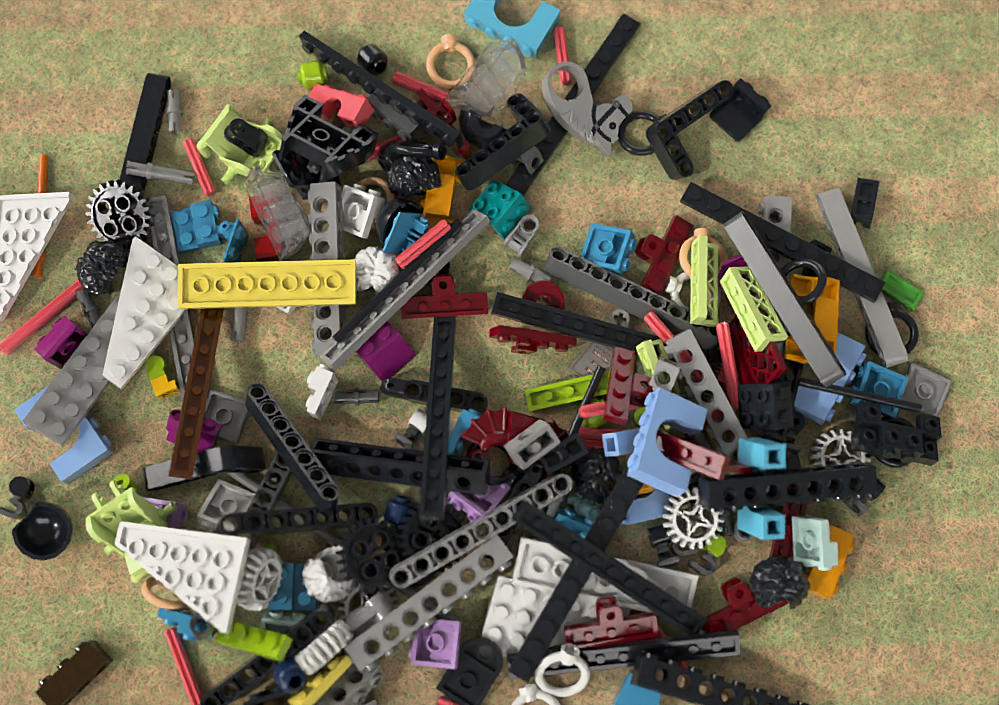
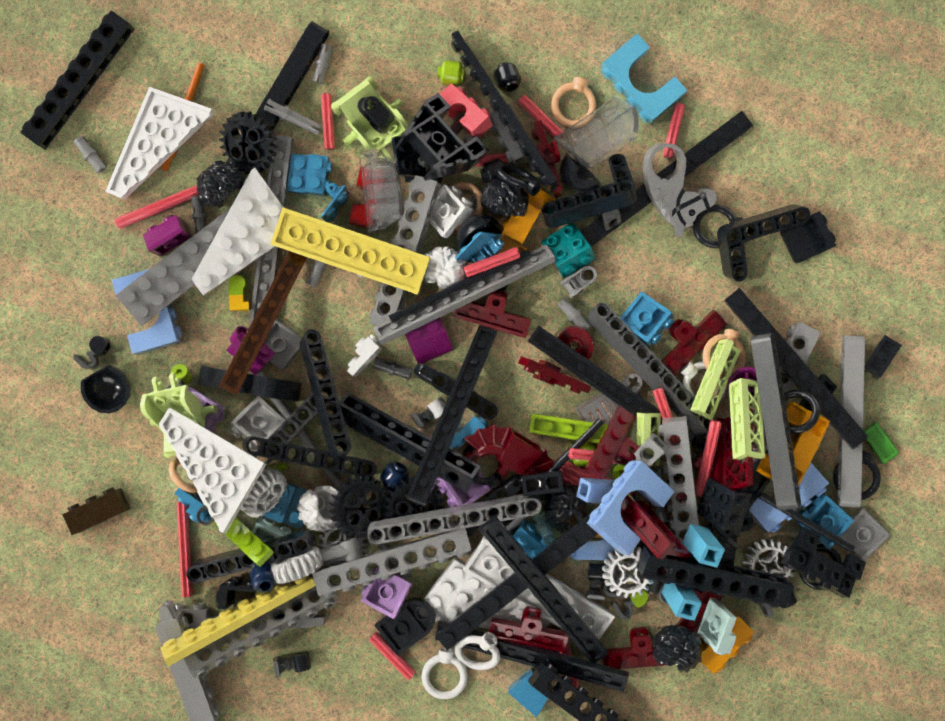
camera: 25 degrees right, 10 degrees up
(532, 444) = (519, 467): light grey brick -> none

